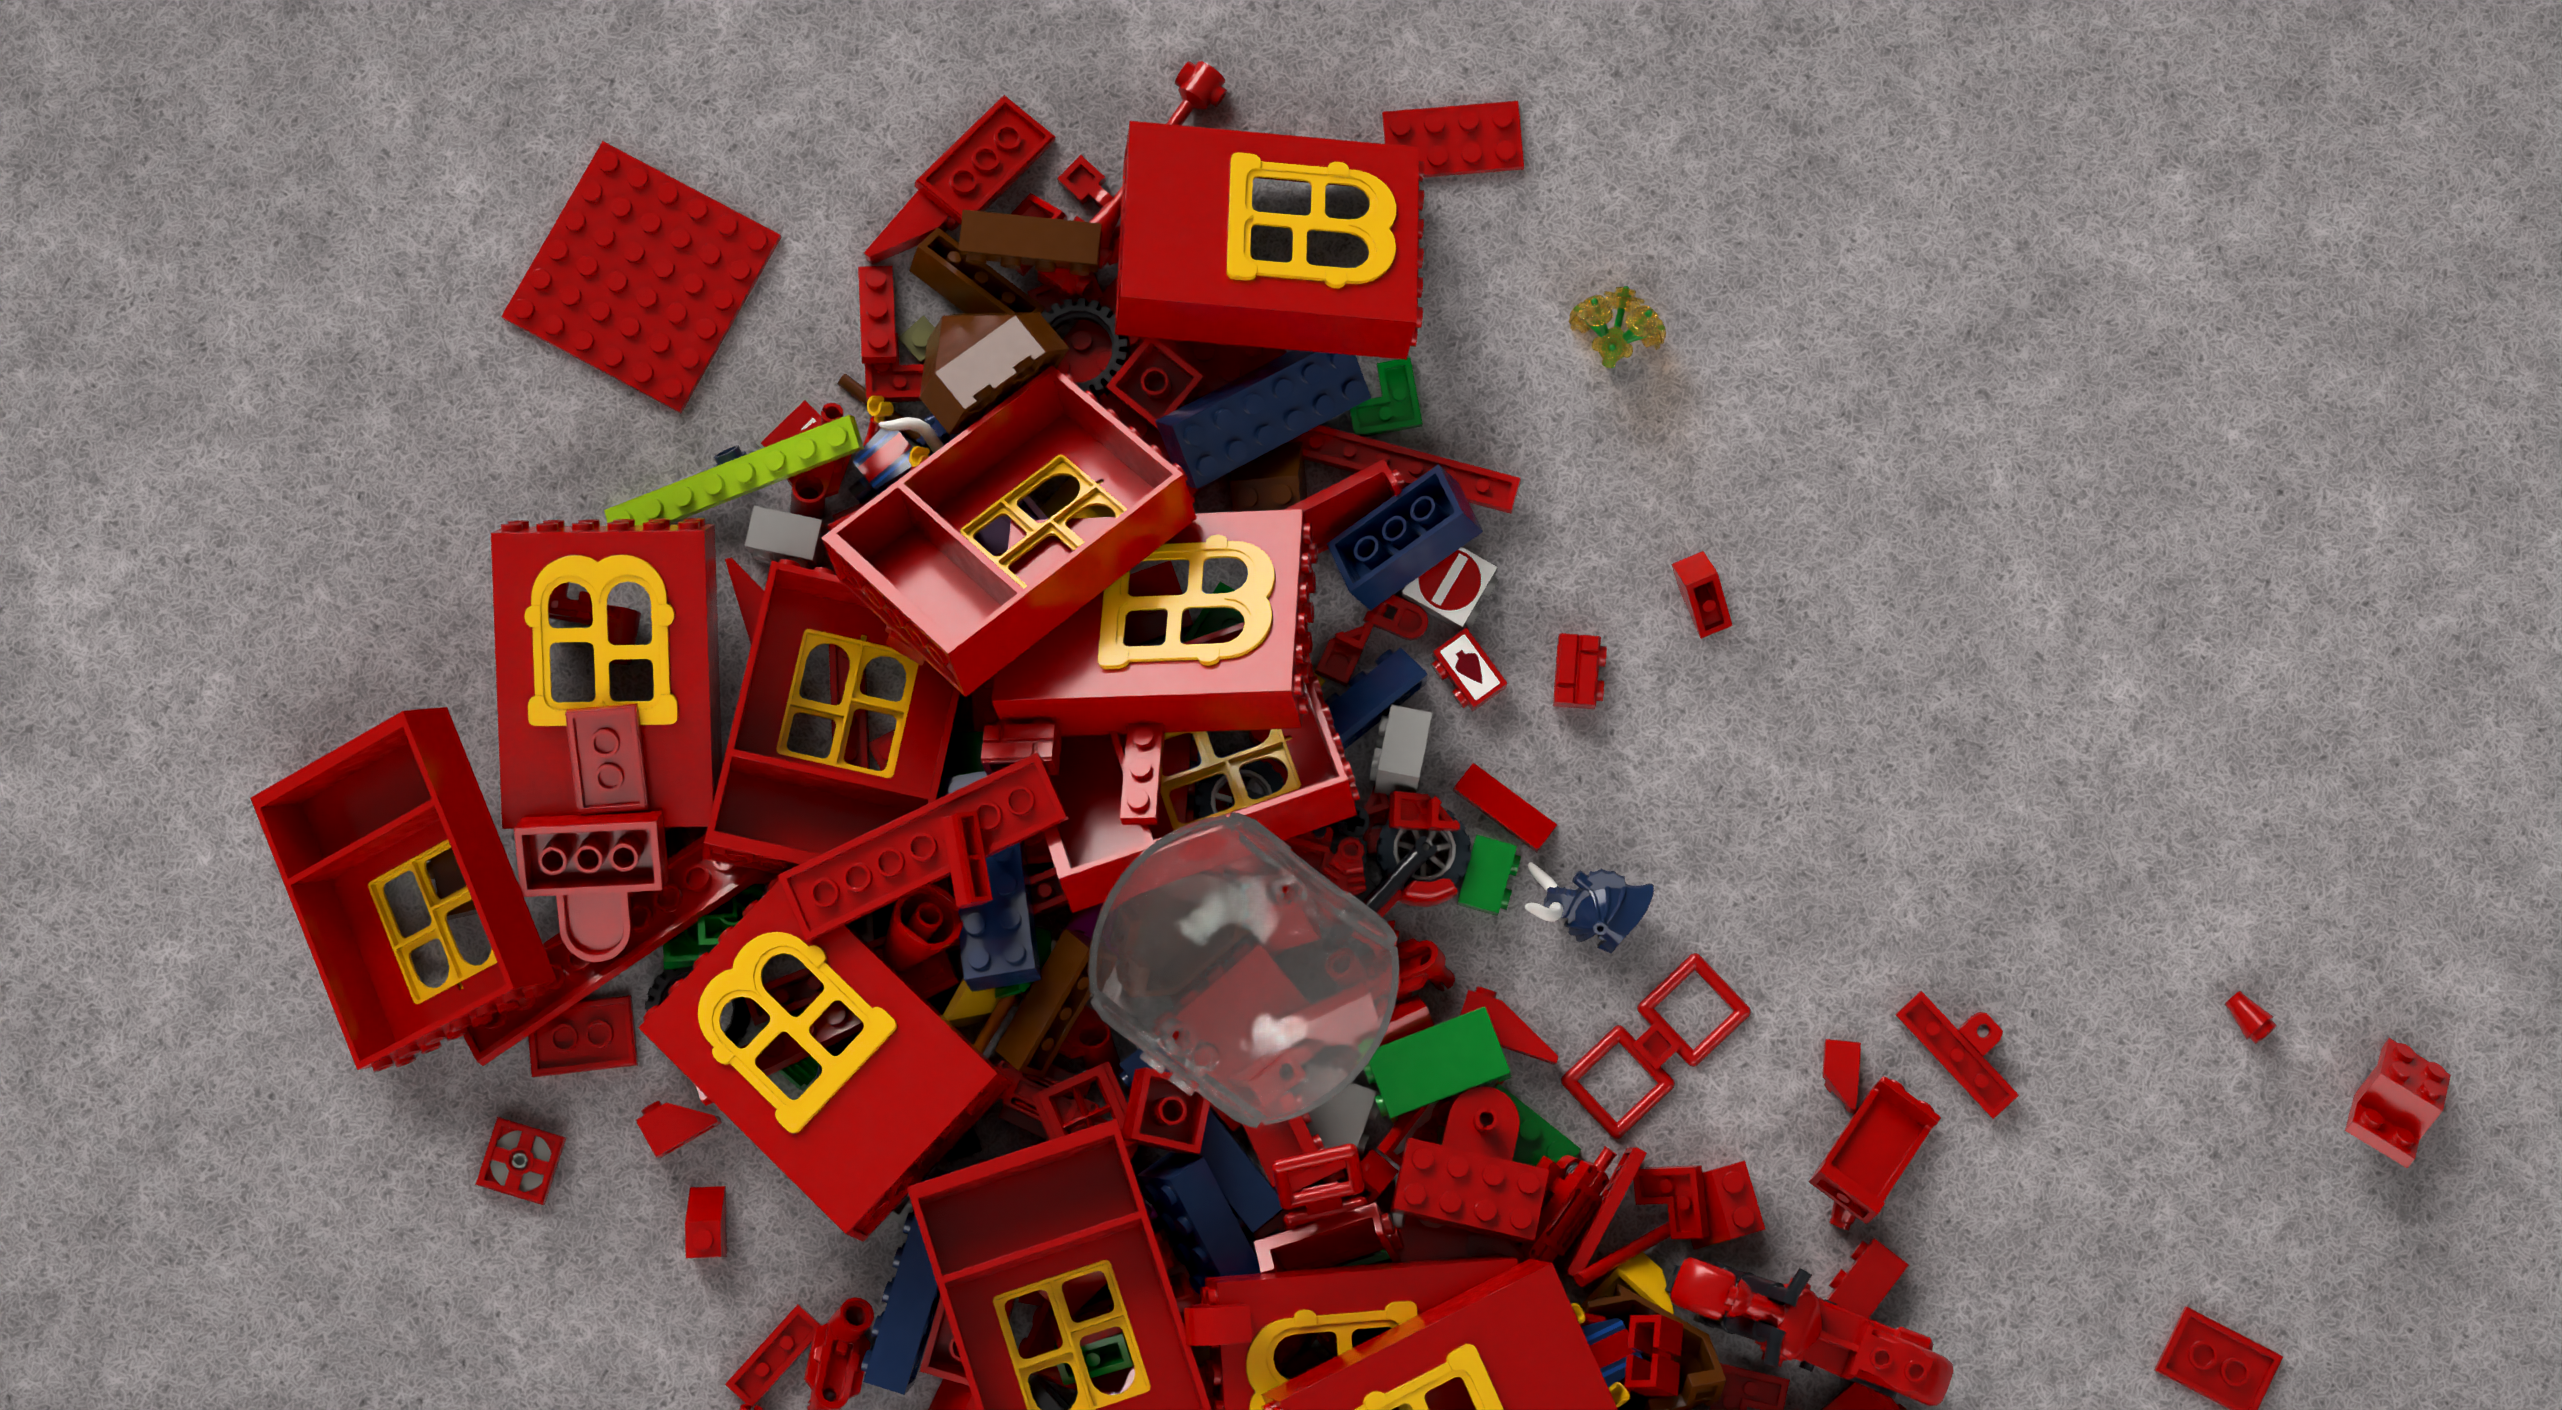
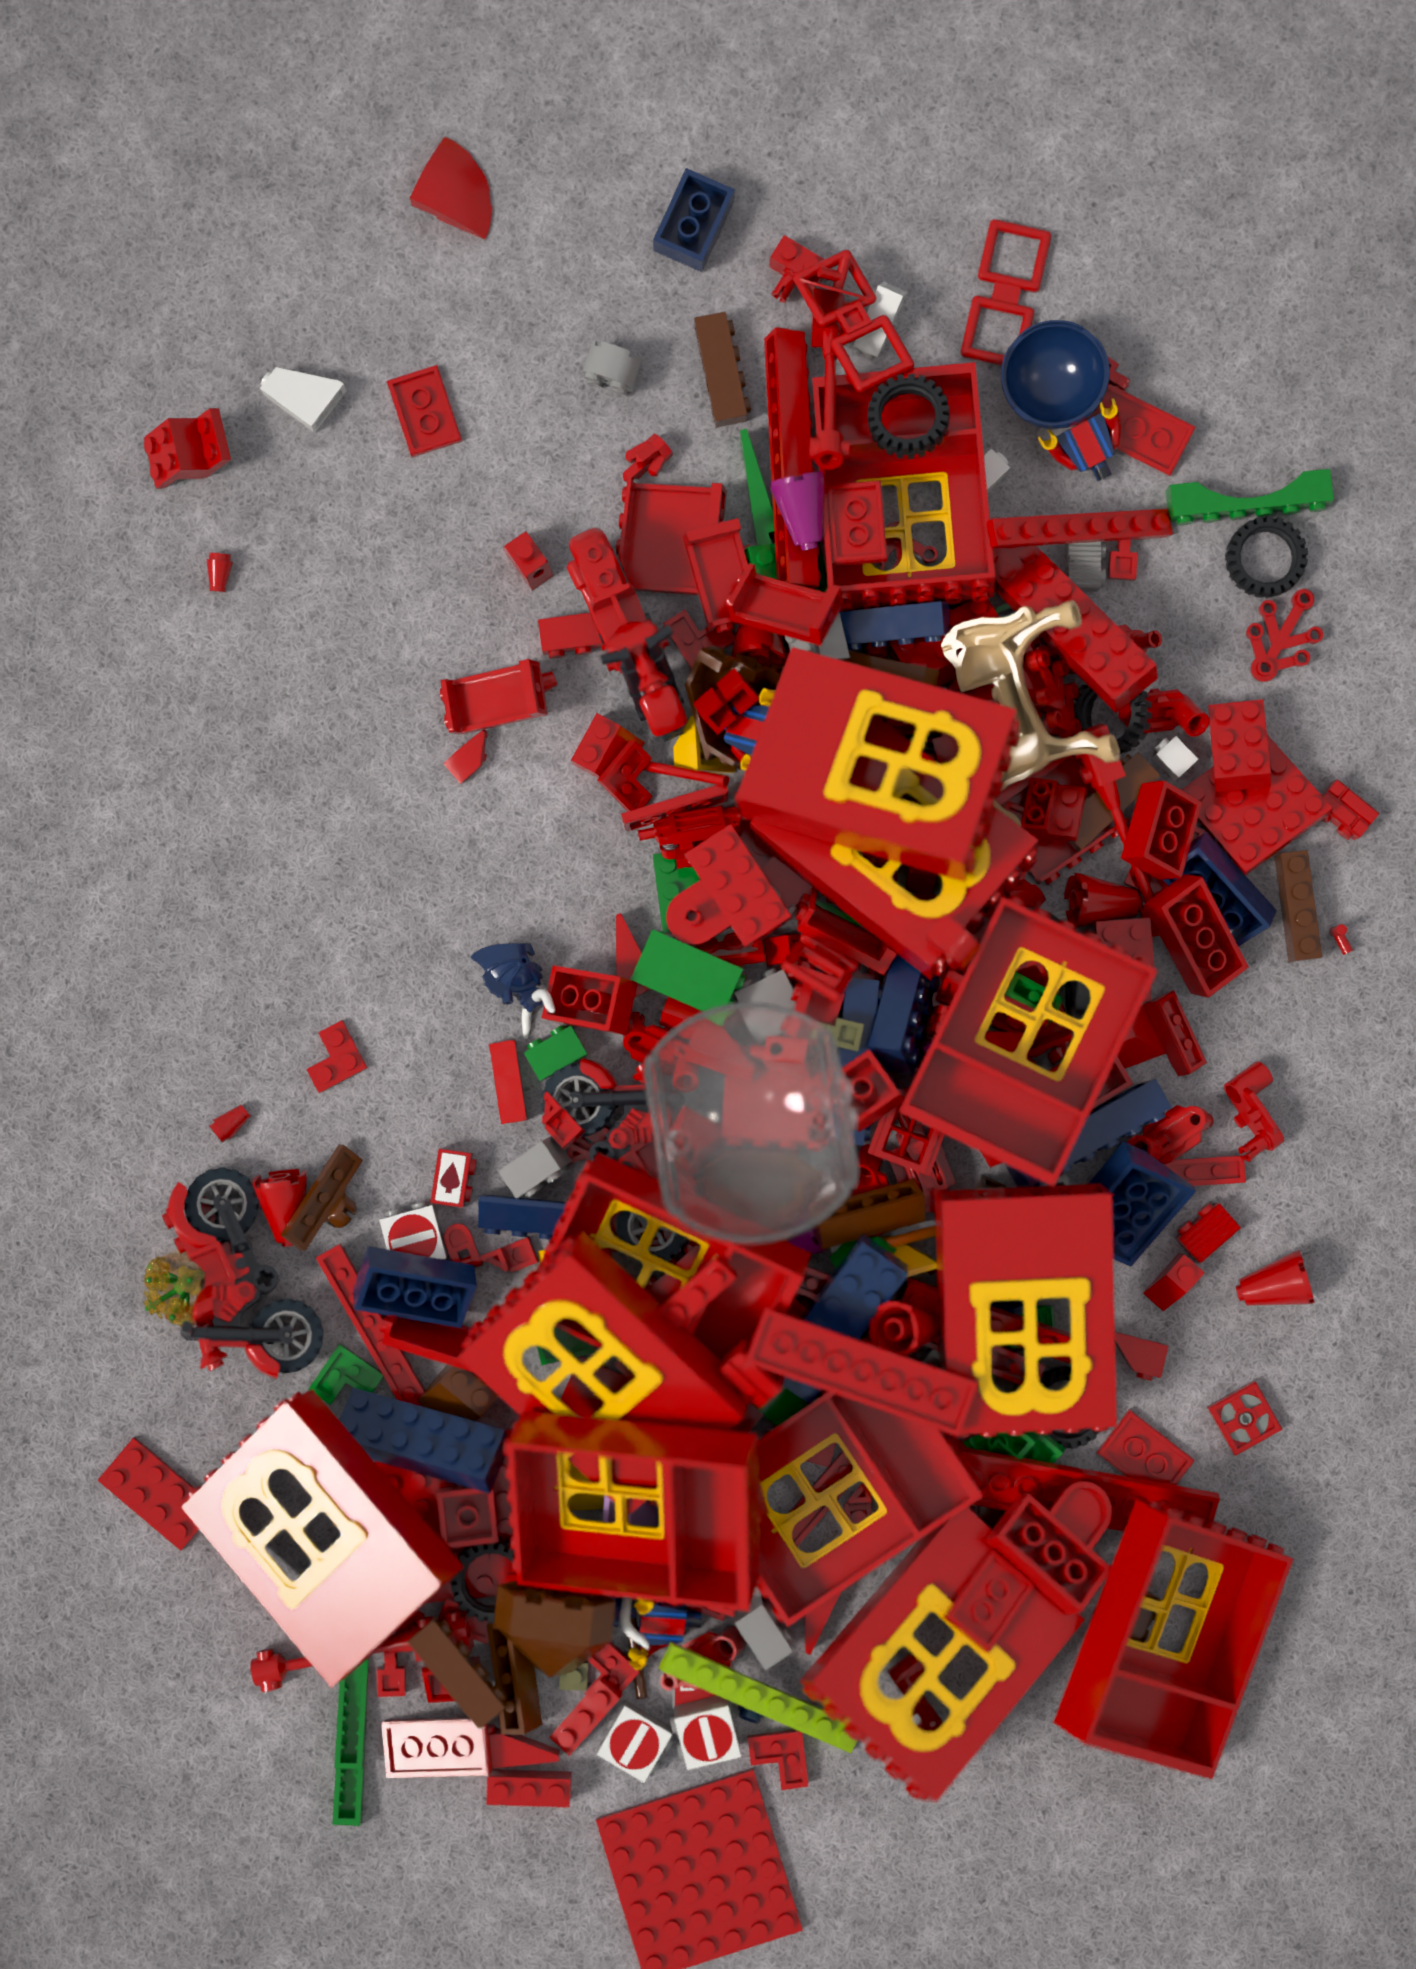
camera: 145 degrees left, 5 degrees up
(605, 1317) = (1277, 1283): none -> red cone
(665, 457) = (787, 1750): none -> red plate
(718, 1301) = (1206, 1232): none -> red brick
(754, 403) = (705, 1732): none -> piece
(806, 735) = (859, 1505): none -> red slope
(810, 335) = (635, 1742): none -> piece
(811, 1264) = (1143, 1199): none -> dark blue slope
(867, 205) = (529, 1788): none -> red brick
(966, 859) = (844, 1339): red piece -> none
(1019, 1331) = (1058, 1053): none -> red tile
(1061, 89) = (351, 1748): none -> green slope
(1238, 1148) = (846, 1033): none -> olive plate
(1503, 953) = (590, 1000): none -> red brick
(1563, 537) = (325, 1200): none -> reddish brown plate
(1575, 387) = (233, 1279): none -> piece
(1578, 670) = (392, 1117): red brick -> none
(1598, 499) = (280, 1198): none -> red cone
(1655, 1046) = (555, 870): red bar -> none
(1673, 677) = (343, 1060): none -> red plate
(1702, 594) = (279, 1093): red slope -> none
(1720, 522) = (229, 1123): none -> red cone
(1961, 1051) = (392, 705): red plate -> none
(1974, 1313) = (528, 560): none -> red torso
(2345, 1262) = (303, 395): none -> white slope

